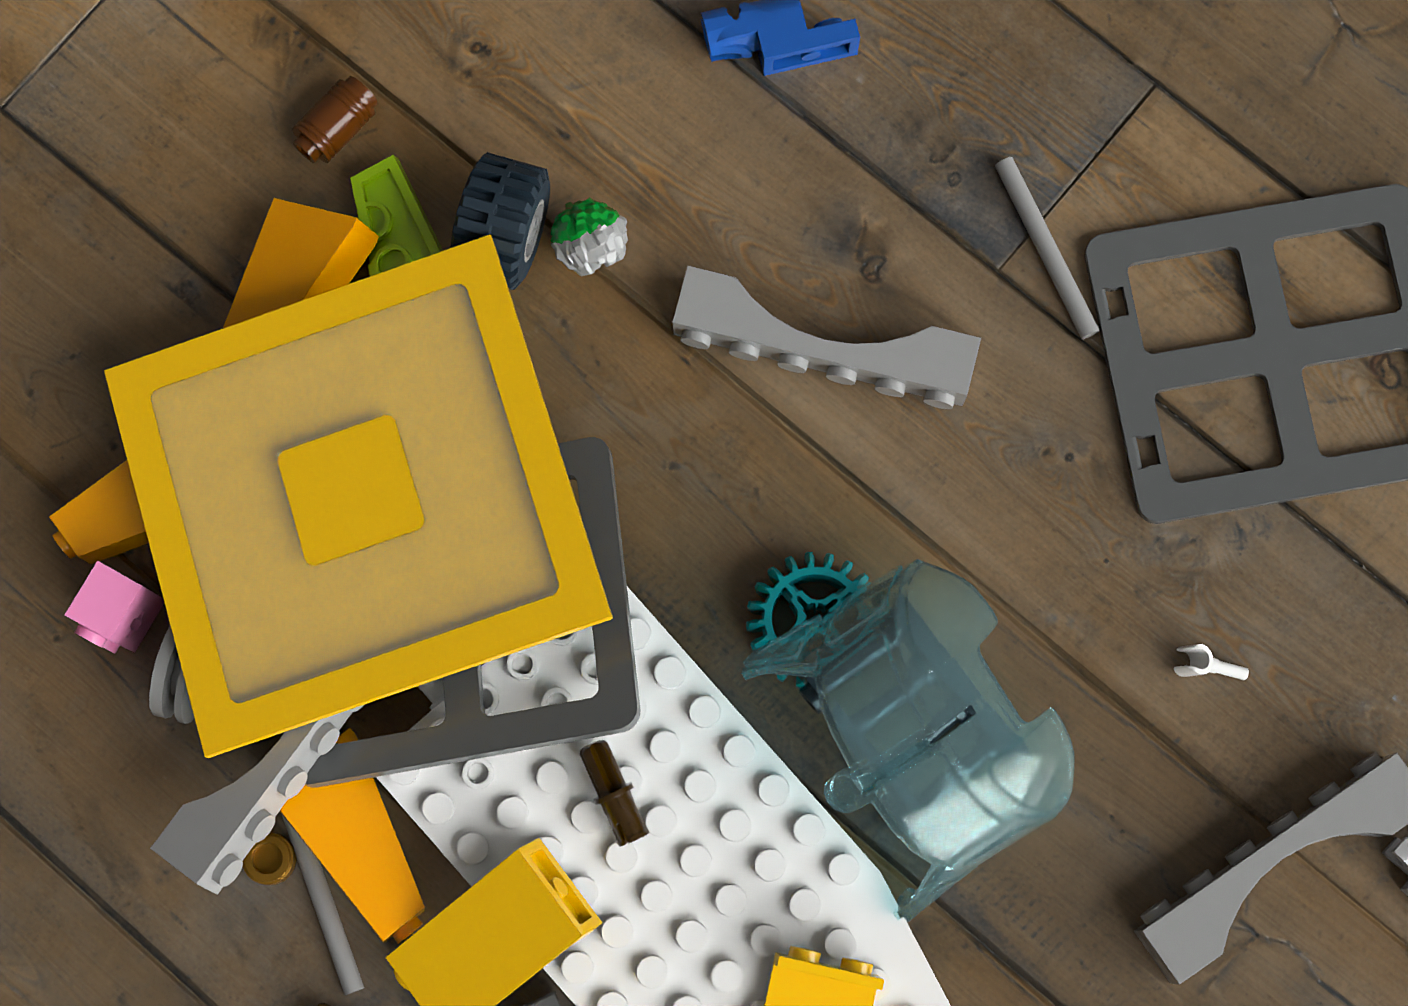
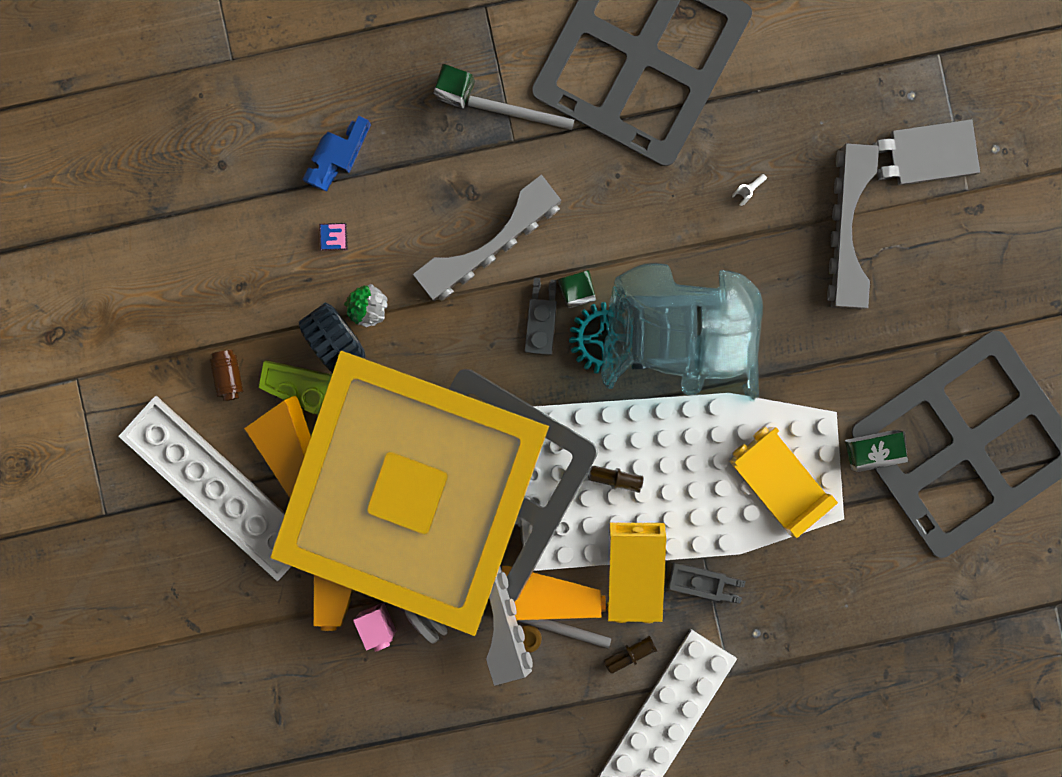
camera: 55 degrees left, 10 degrees up
(156, 207) = (208, 482): none -> white plate
(653, 121) = (333, 237): none -> tile
(768, 507) = (541, 320): none -> dark grey hinge
(855, 518) = (577, 289): none -> dark green piece
(1006, 118) = (453, 86): none -> dark green piece

